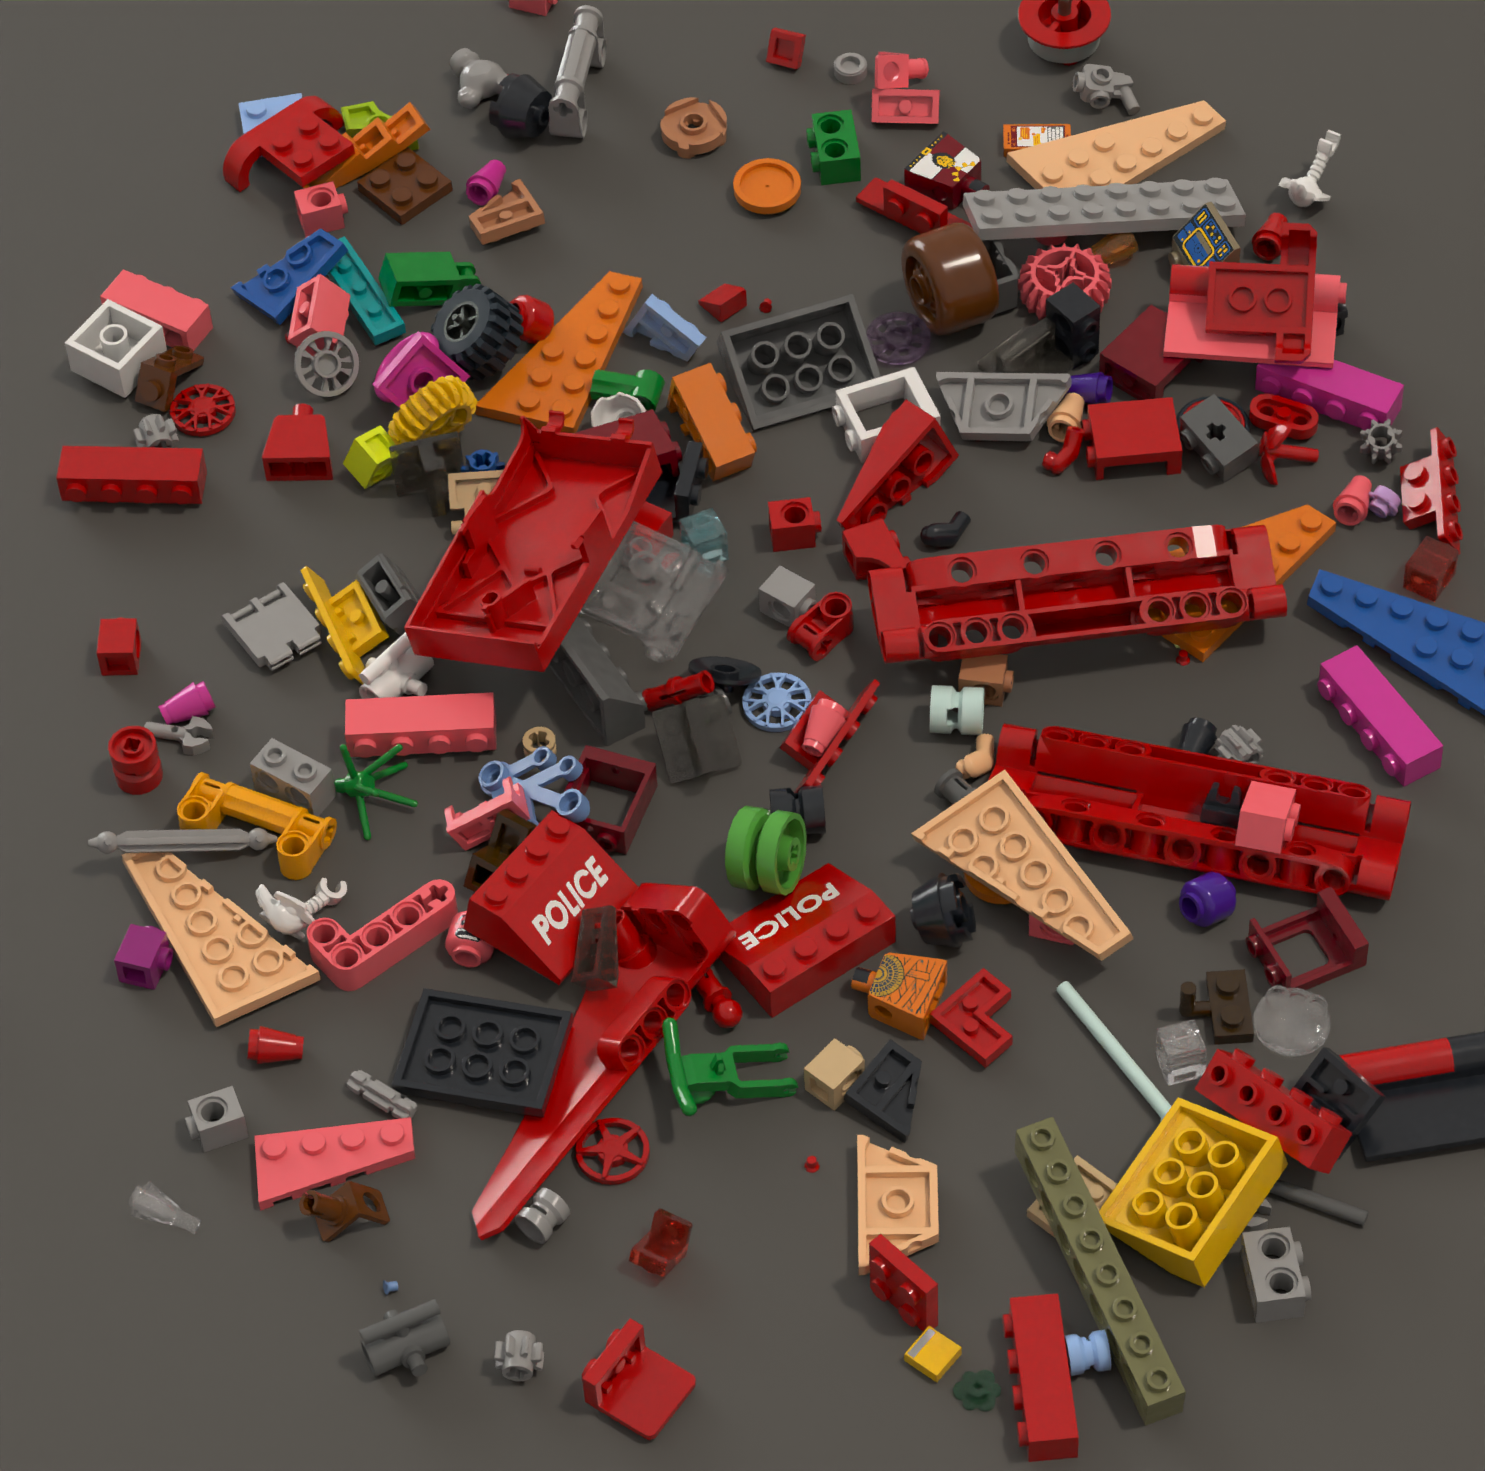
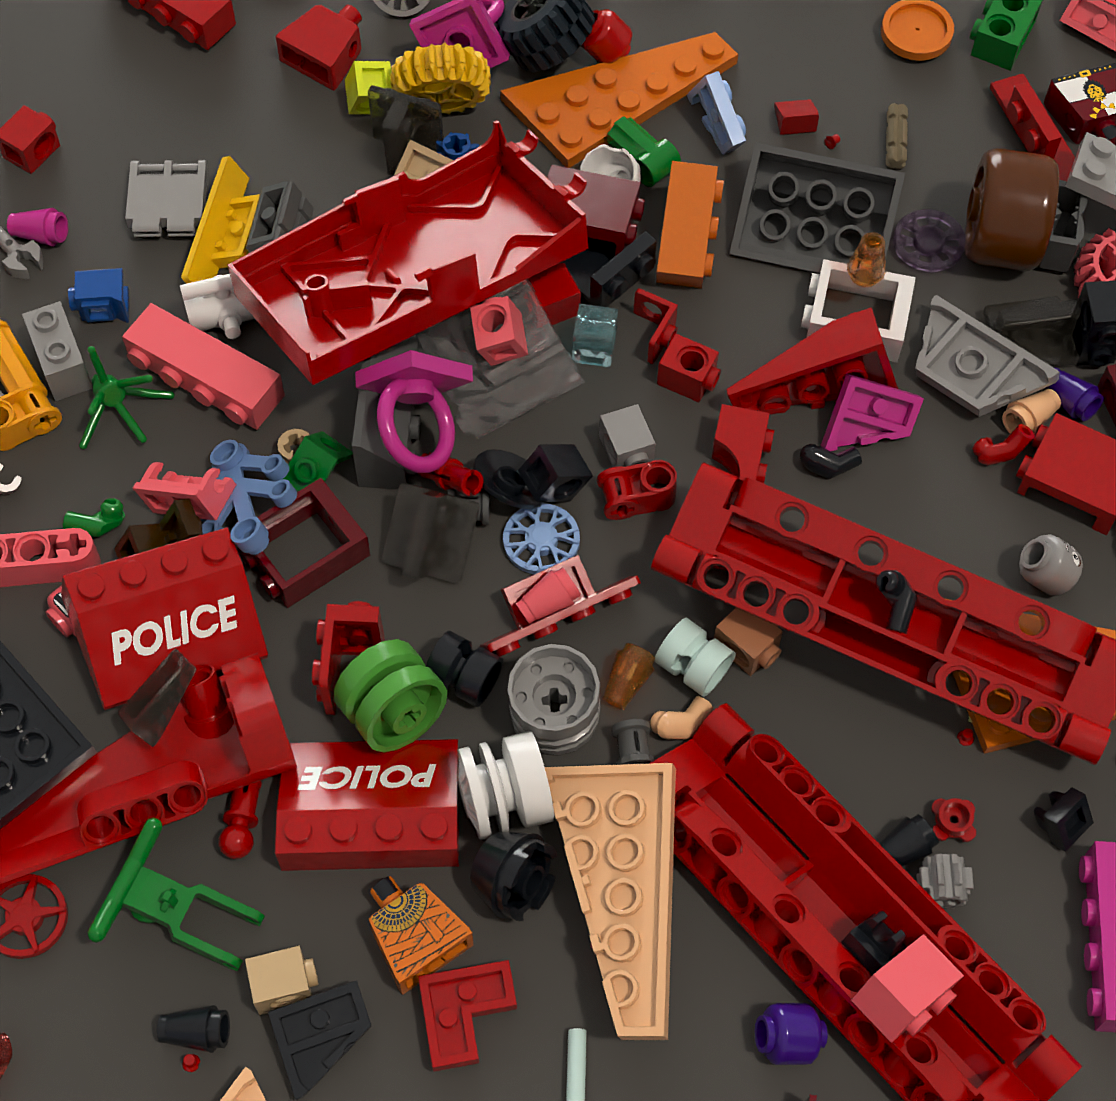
camera: 30 degrees right, 10 degrees up
(290, 721) = (100, 295): none -> blue window
(436, 869) = (100, 523): none -> green arm
(566, 739) = (315, 460): none -> green bracket
(613, 631) = (415, 380): none -> dark pink tile
(652, 574) = (509, 340): none -> coral brick
(699, 835) = (344, 631): none -> red bracket
(746, 501) = (666, 321): none -> red bracket
(755, 647) = (555, 472): none -> black brick
(801, 1137) = (195, 1028): none -> black cone
(813, 275) = (896, 136): none -> dark tan axle
(875, 371) = (868, 261): none -> clear orange cone
(882, 789) = (555, 676): none -> light grey wheel
(895, 858) = (505, 785): none -> white wheel
(917, 750) = (628, 674): none -> clear orange cone
(952, 481) = (870, 413): none -> dark pink wing
(1075, 580) = (900, 597): none -> black arm
(1159, 508) = (1050, 564): none -> light grey head
(1215, 704) = (957, 808): none -> red plate
(1289, 666) = (1066, 818): none -> black tile

